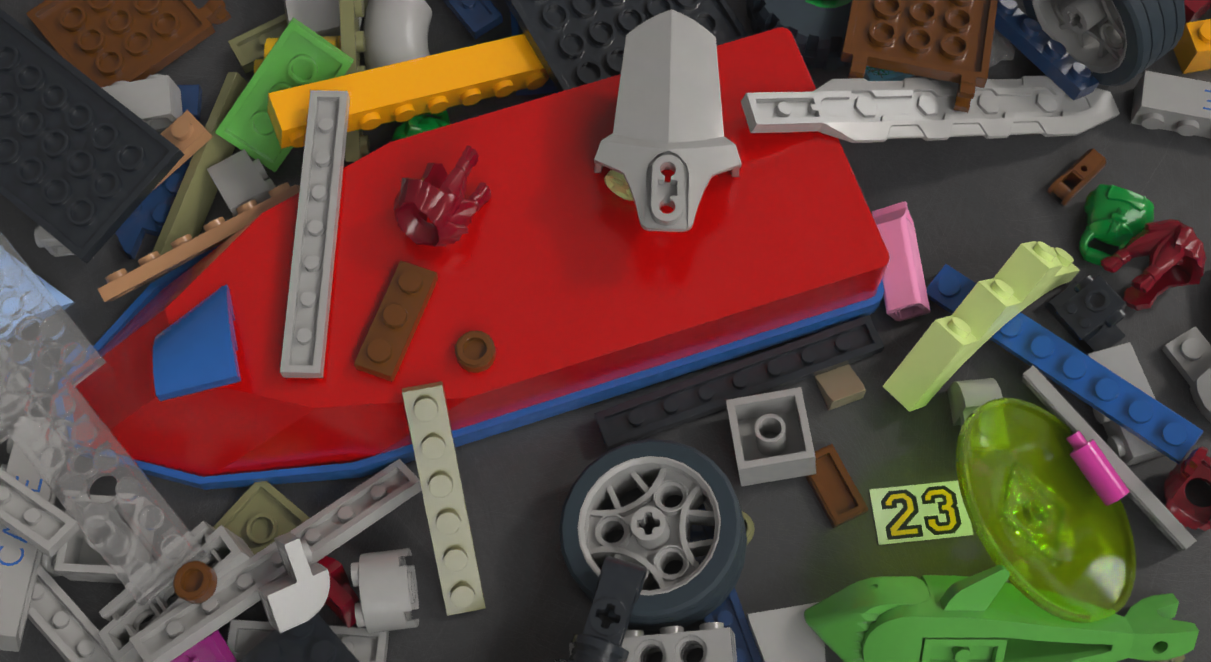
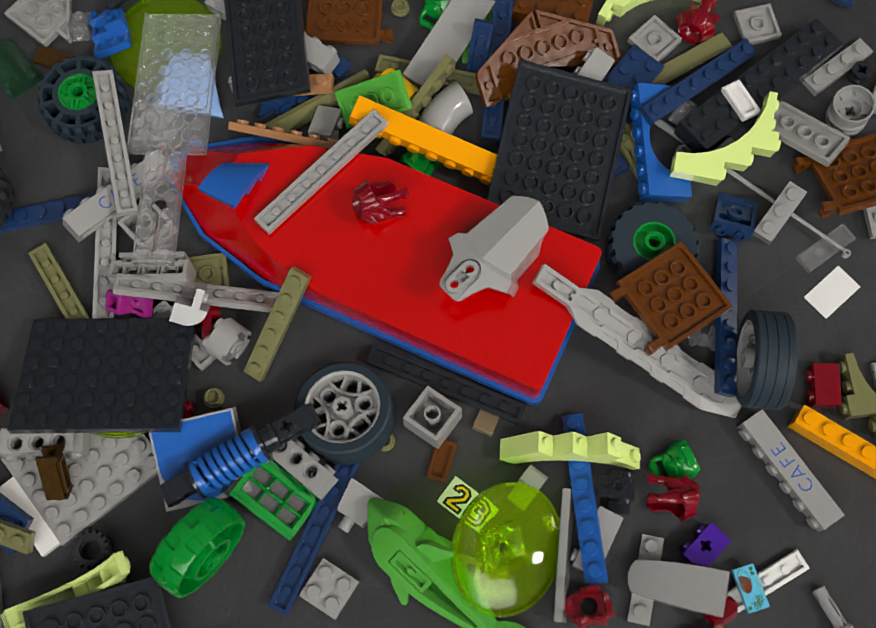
camera: 45 degrees right, 5 degrees up
(195, 582) = (158, 273): reddish brown tile -> none
(396, 321) = (318, 236): reddish brown plate -> none
(475, 351) = (336, 276): reddish brown tile -> none
(904, 278) = (562, 394): bright pink piece -> none
(1078, 175) = (685, 428): reddish brown bar -> none
(1097, 469) = (551, 554): dark pink cylinder -> none

